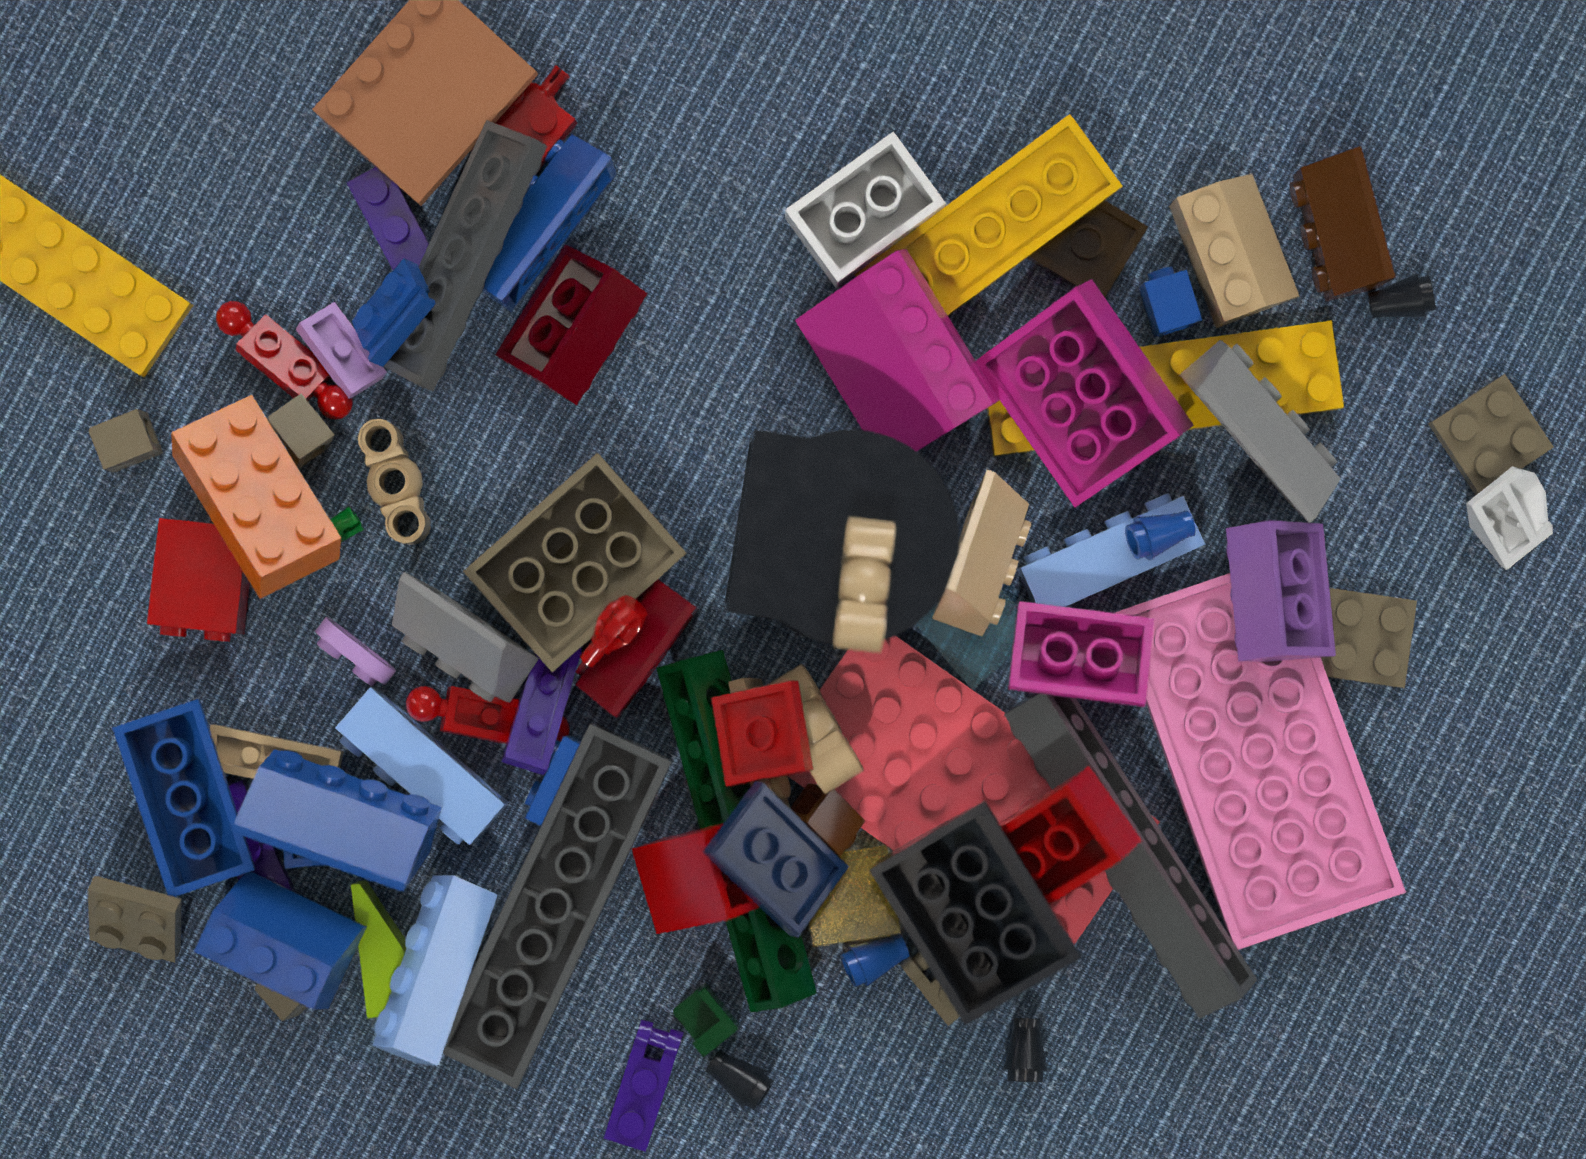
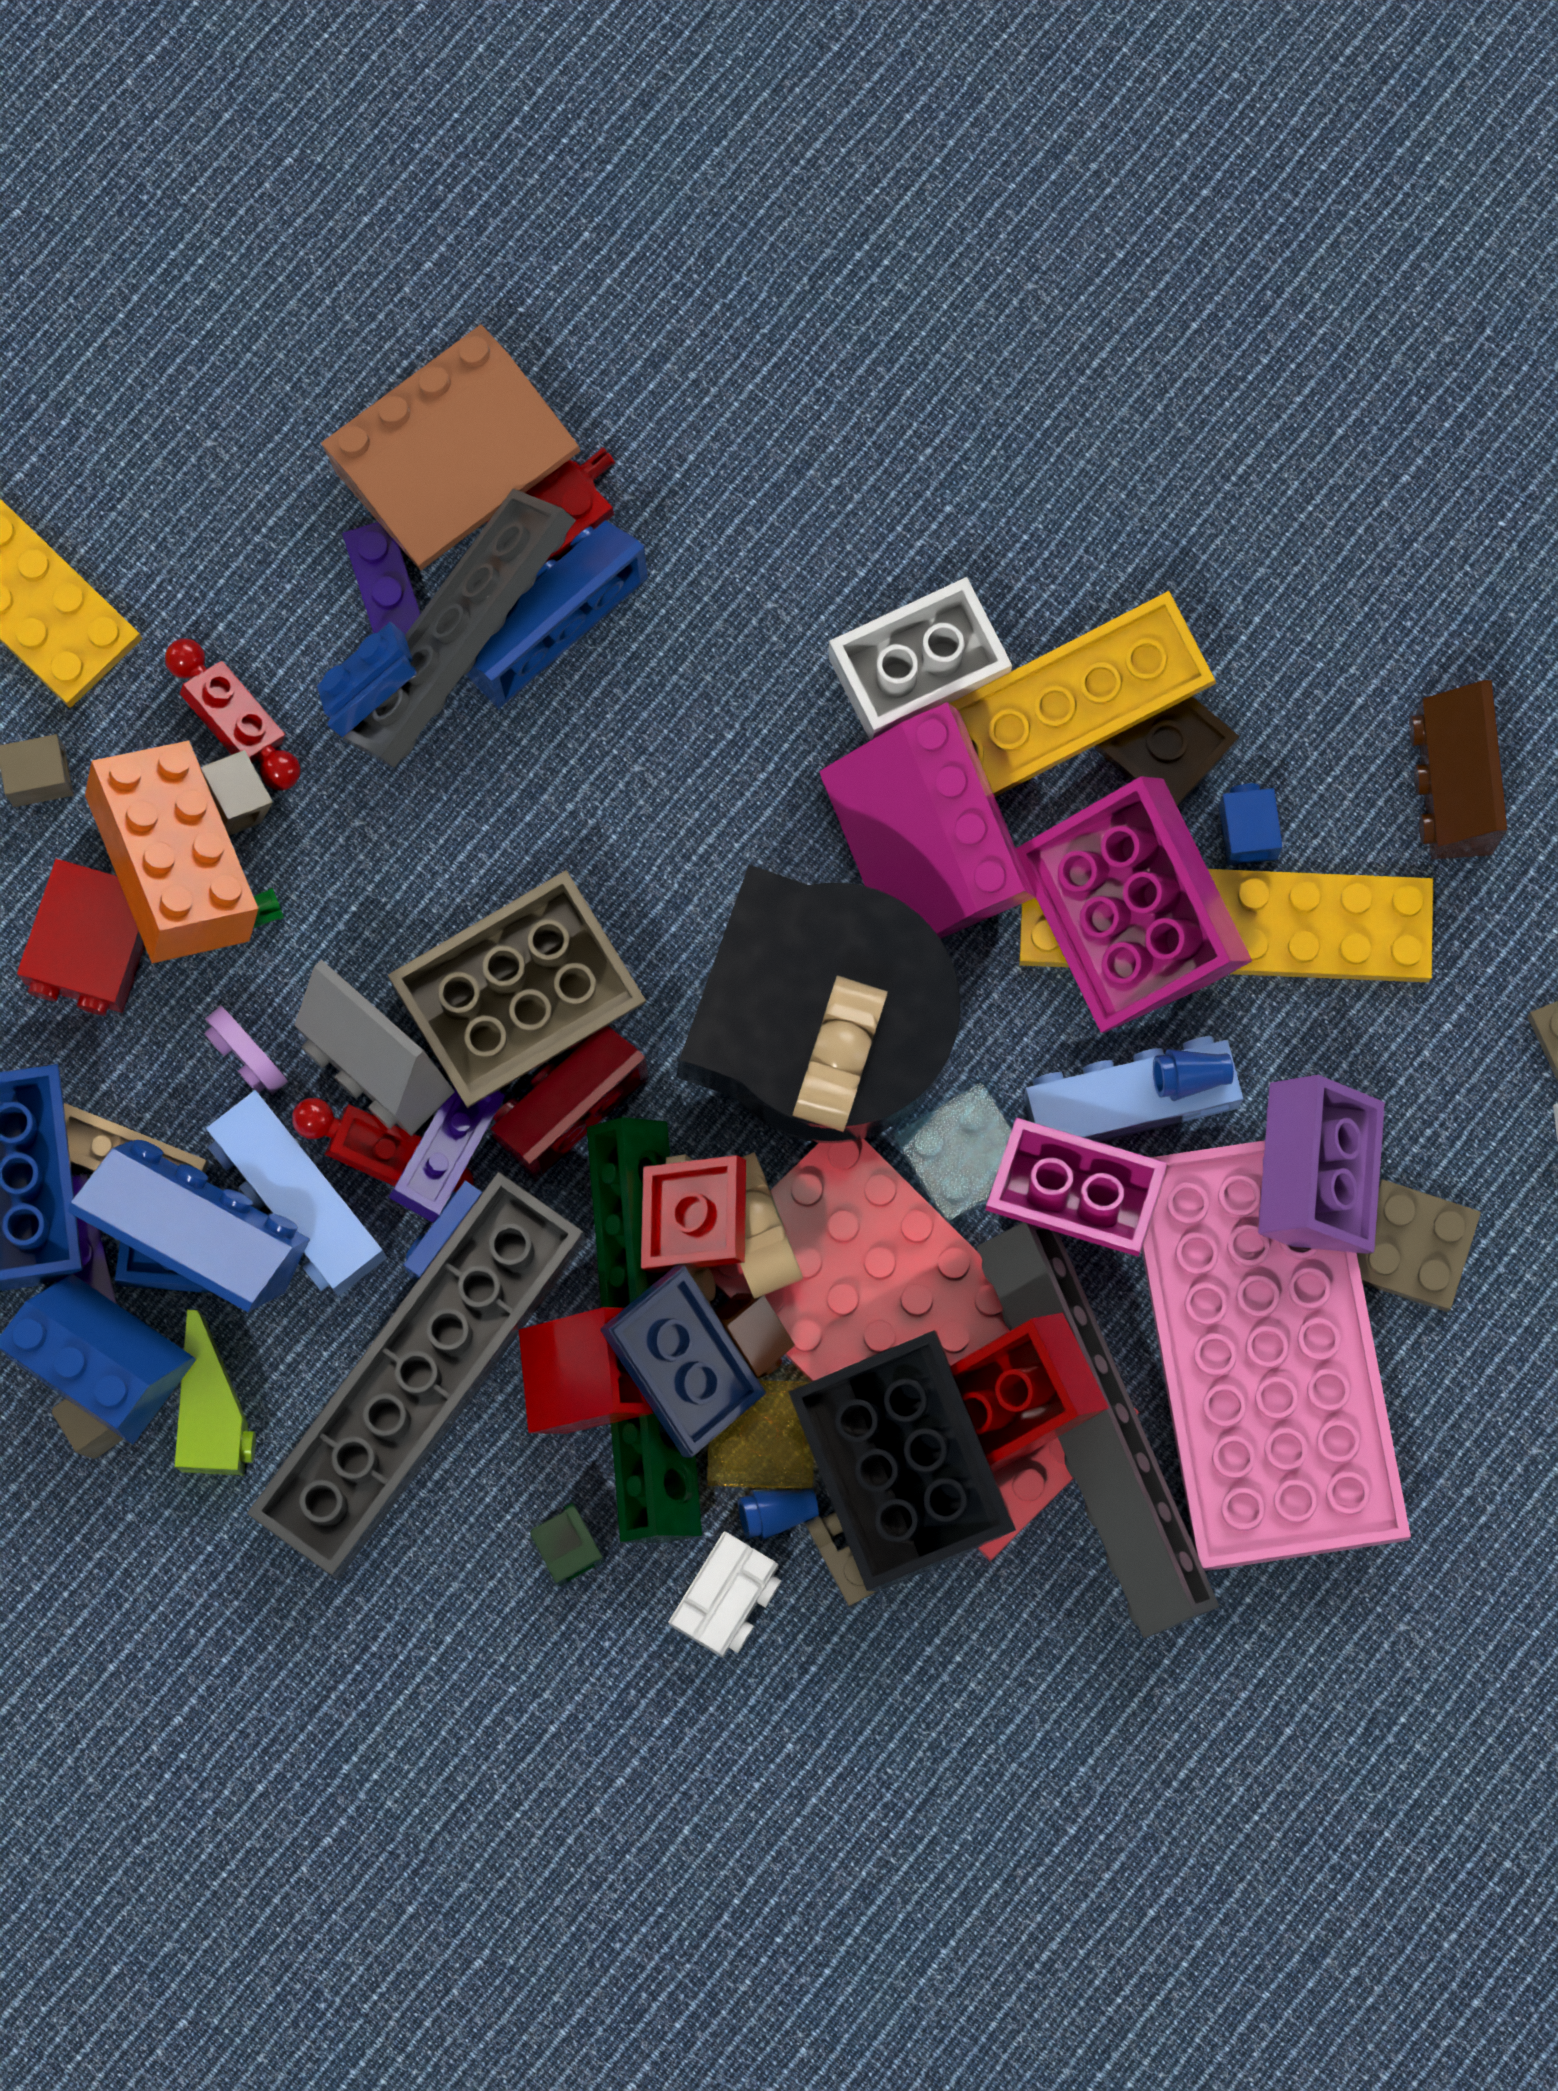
camera: 15 degrees right, 10 degrees down
(340, 350) = (298, 714): lavender plate -> none
(381, 464) = (321, 847): tan piece -> none
(434, 969) = (263, 1421): light blue brick -> none
(571, 324) = (565, 731): dark red slope -> none
(615, 628) = (548, 1068): red piece -> none
(642, 1087) = (478, 1613): dark purple plate -> none
(741, 1080) = (594, 1624): black cone -> none
(844, 1038) = (725, 1595): none -> white brick
(984, 557) = (985, 1065): tan slope -> none
(1025, 1052) = (934, 1653): black cone -> none
(1233, 249) = (1333, 779): tan slope -> none
(1262, 428) = (1330, 978): light grey slope -> none
(1403, 299) = (1519, 868): black cone -> none

